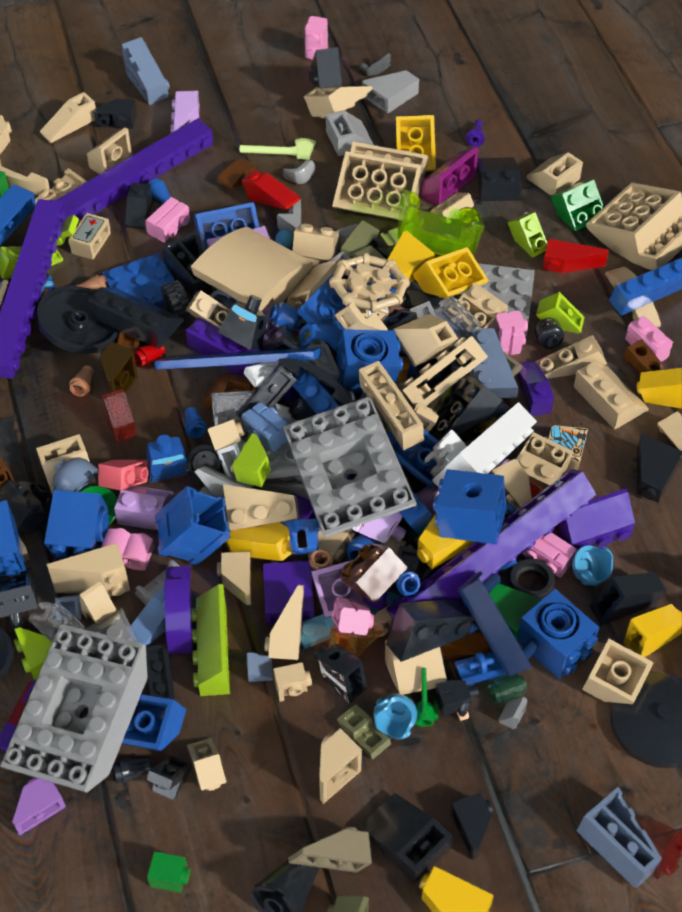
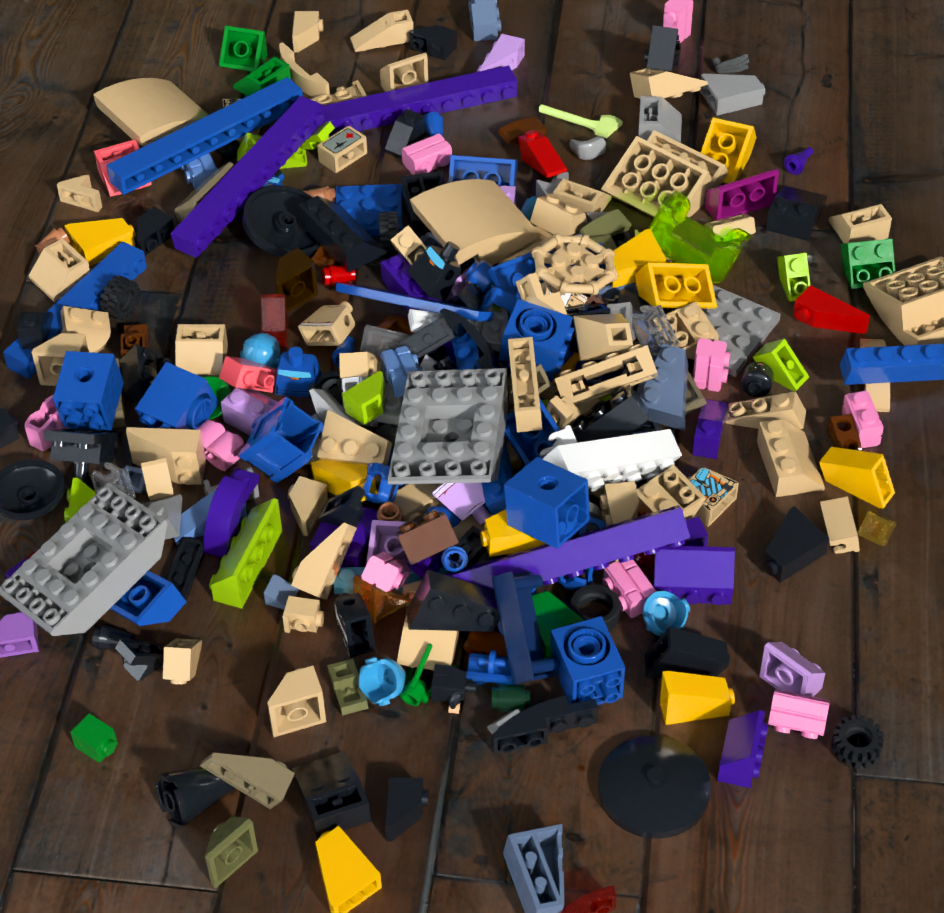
camera: 25 degrees right, 5 degrees down
(73, 474) = (199, 358): sand blue cylinder -> none
(82, 381) = (259, 281): nougat cone -> none
(121, 446) = (262, 349): none -> dark azure cap
(168, 403) = (328, 325): none -> tan torso
(281, 570) = (344, 508): none -> black slope
(322, 217) = (584, 197): none -> tan slope
(543, 701) = (532, 725): none -> black slope
(617, 674) = (626, 721): tan slope -> none

